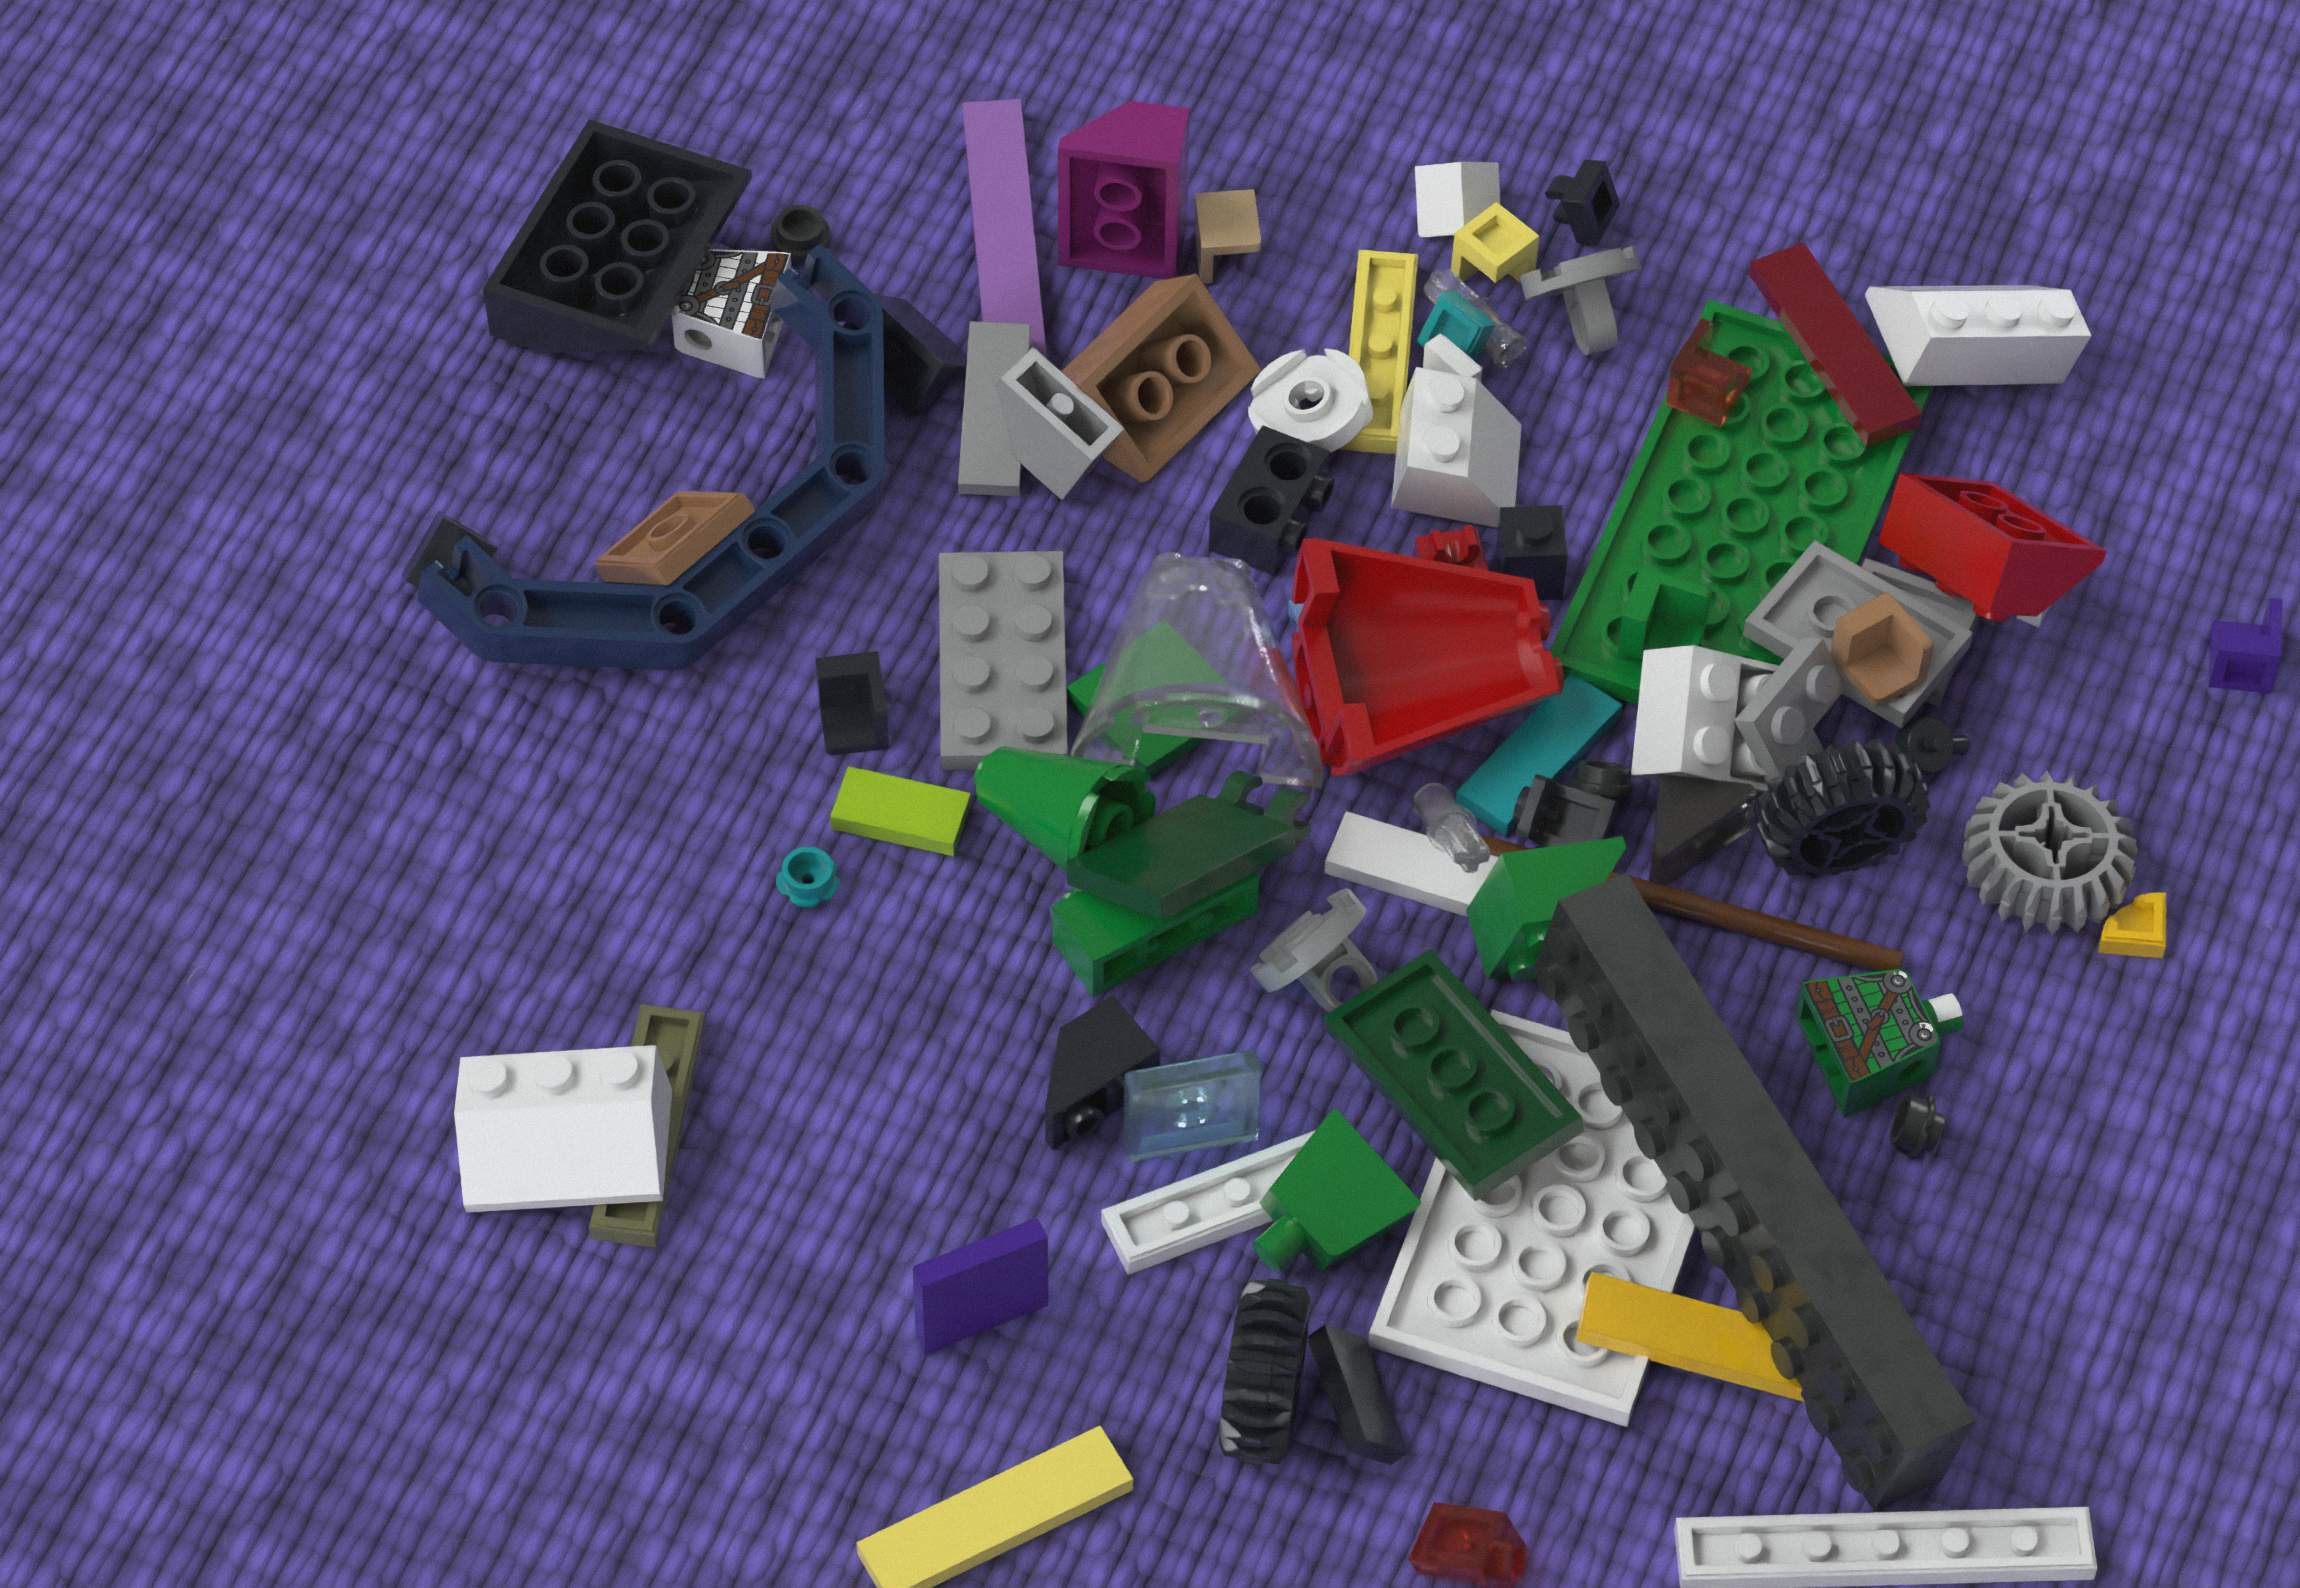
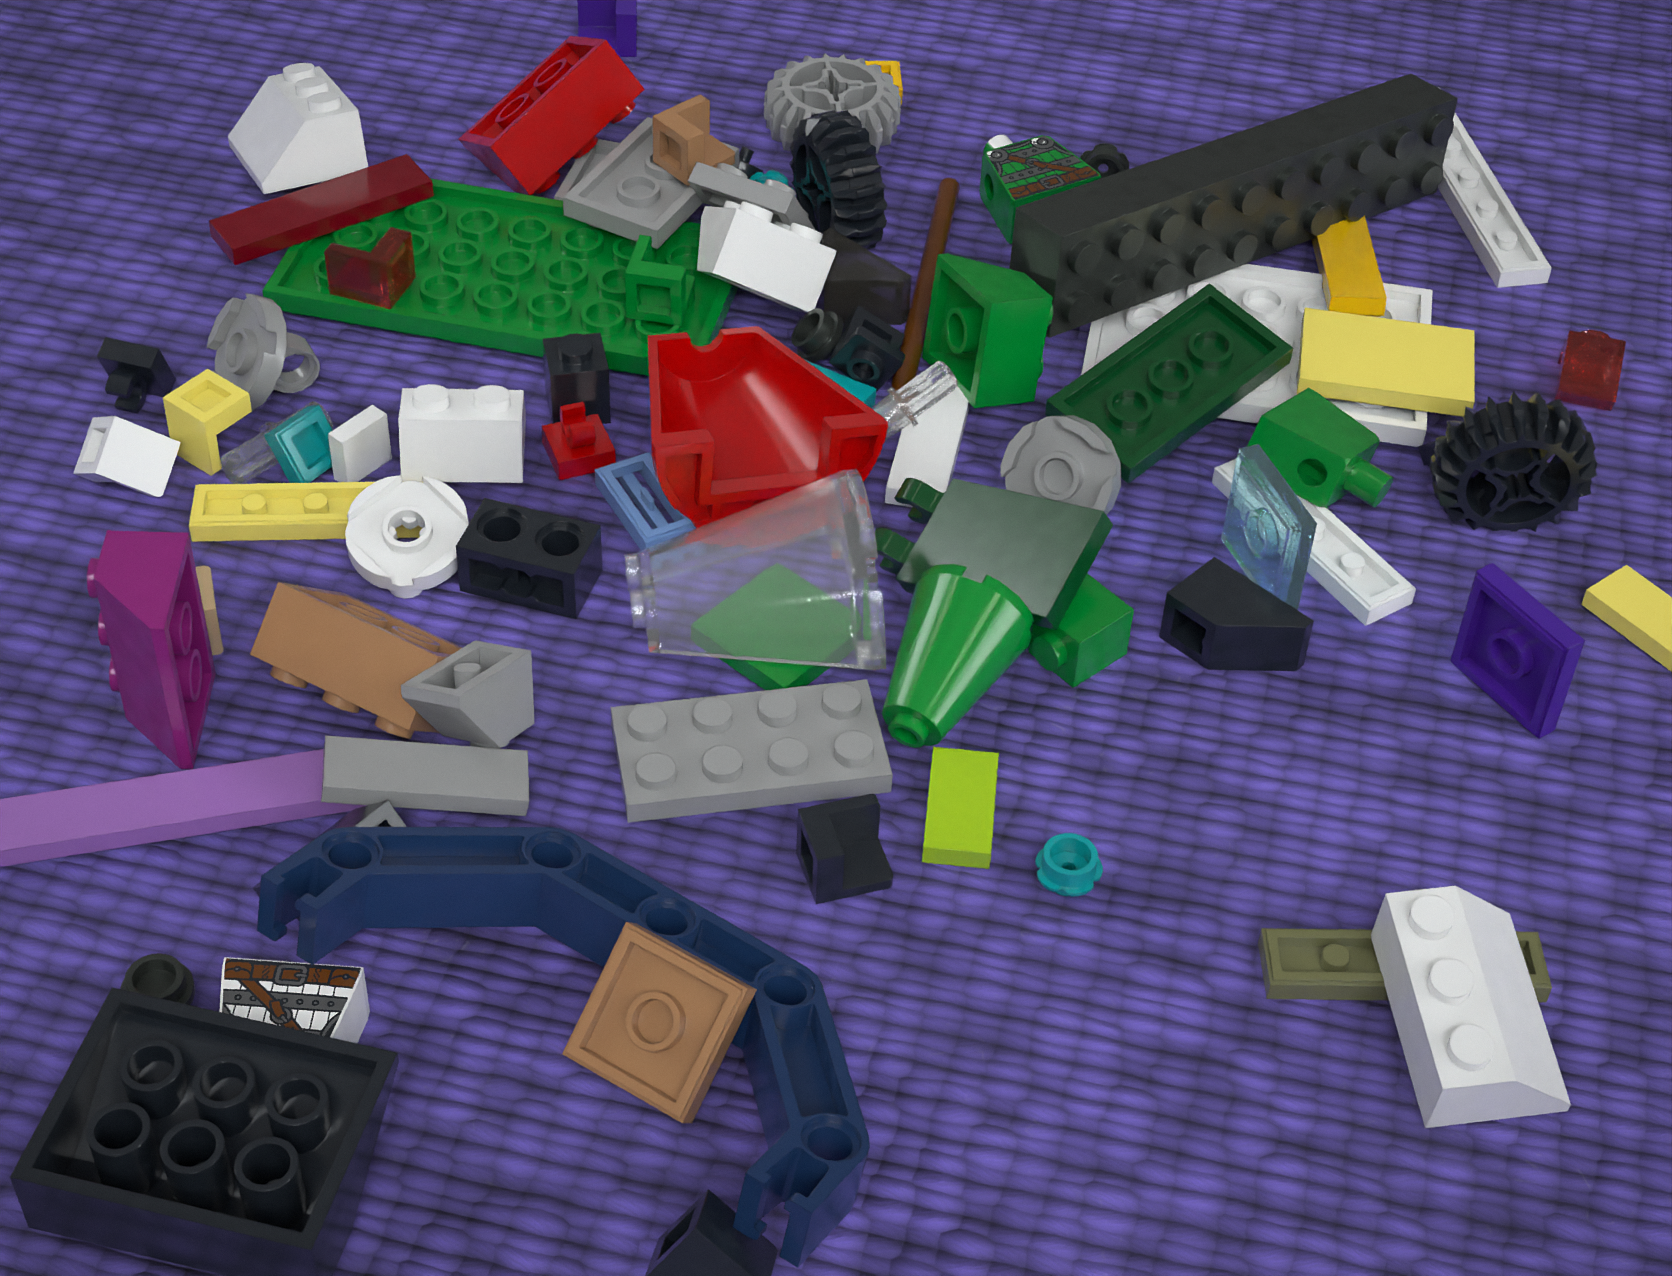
camera: 100 degrees left, 10 degrees down
(1477, 1310) = (1387, 362): none -> light yellow tile

